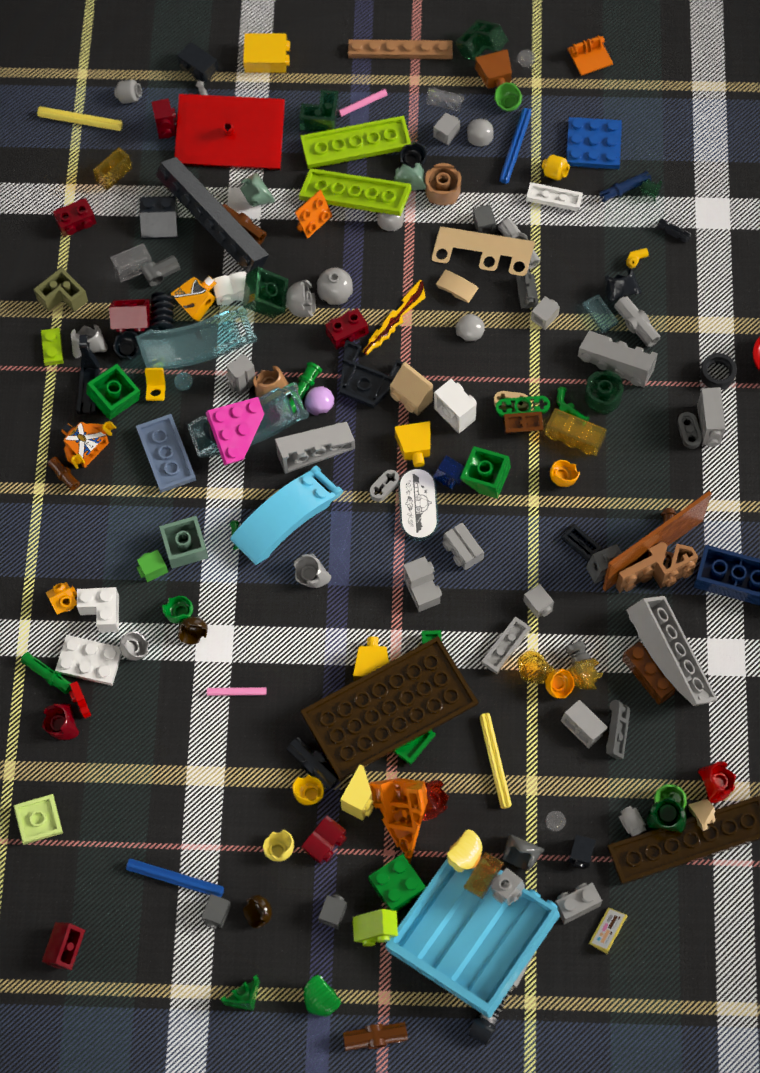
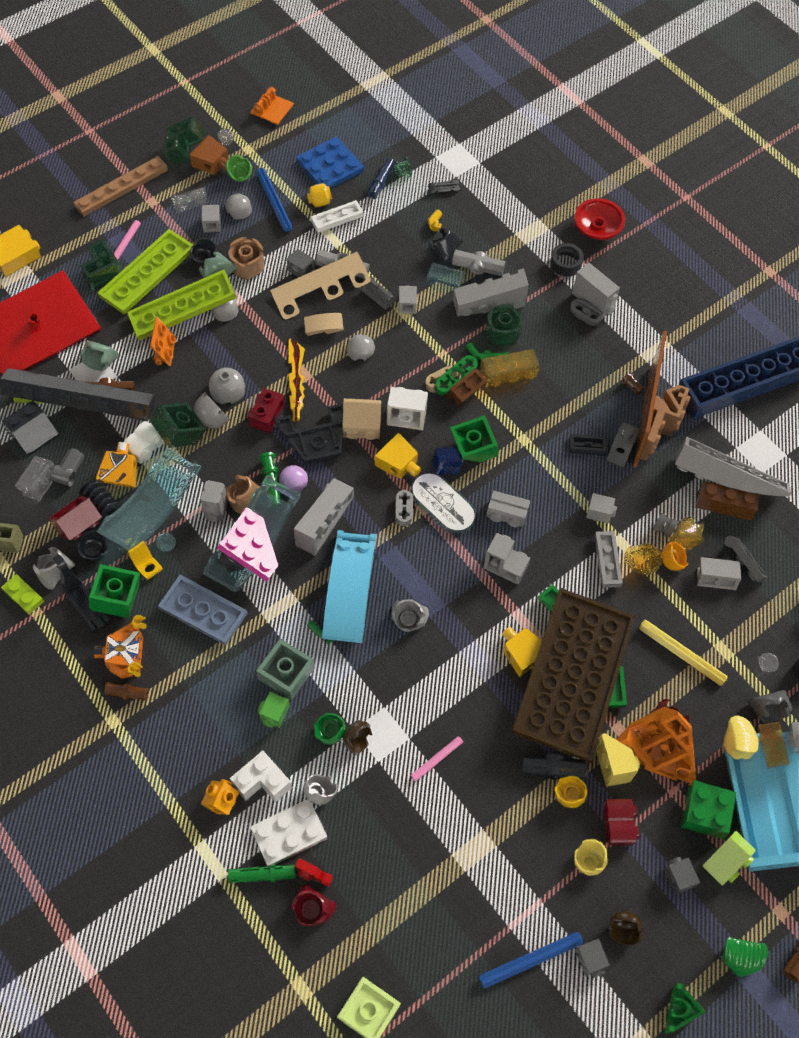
camera: 45 degrees left, 5 degrees down
(564, 473) = (530, 402): light orange hair -> none

